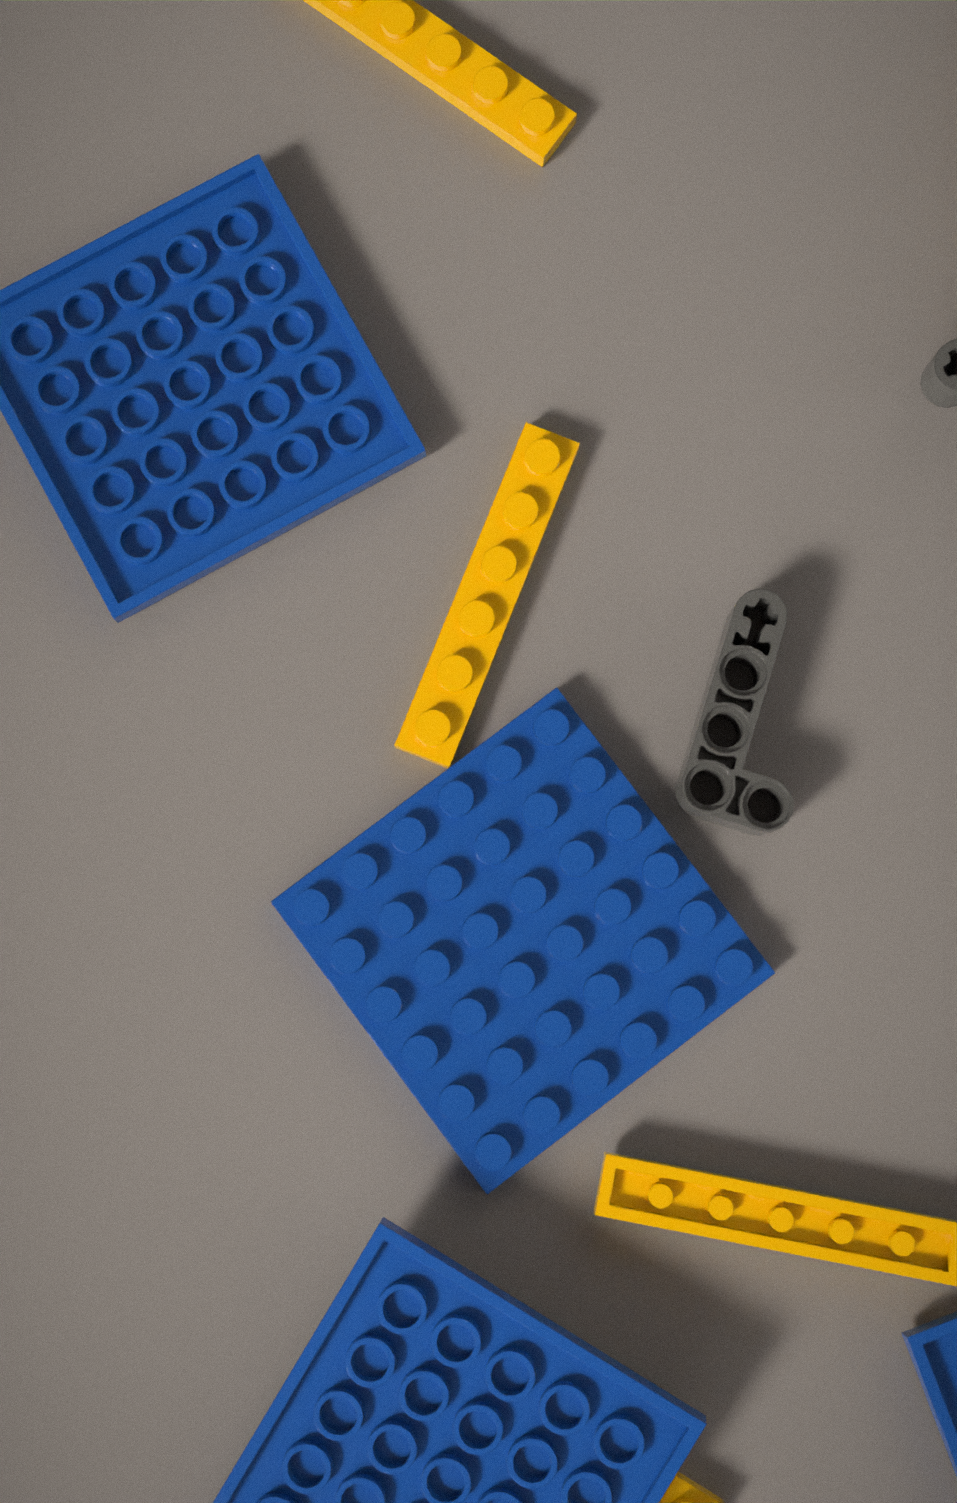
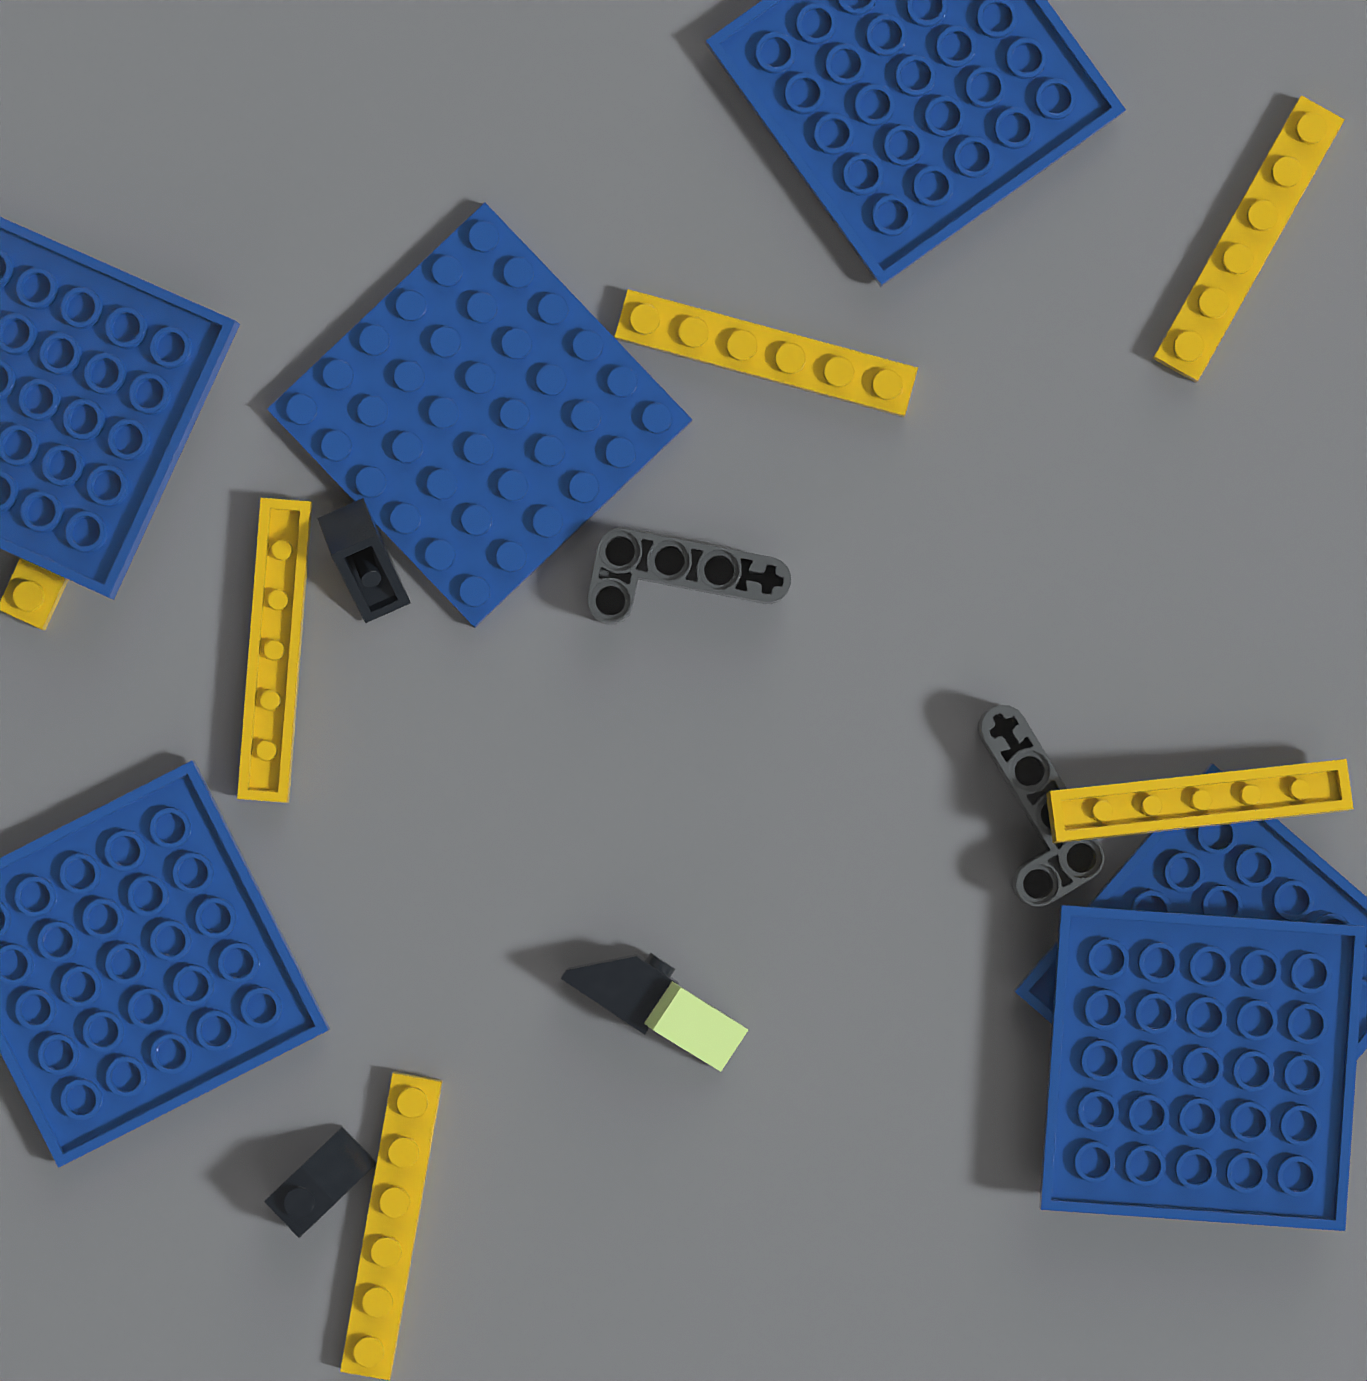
camera: 80 degrees right, 5 degrees up
(682, 1098) = (363, 560): none -> black slope

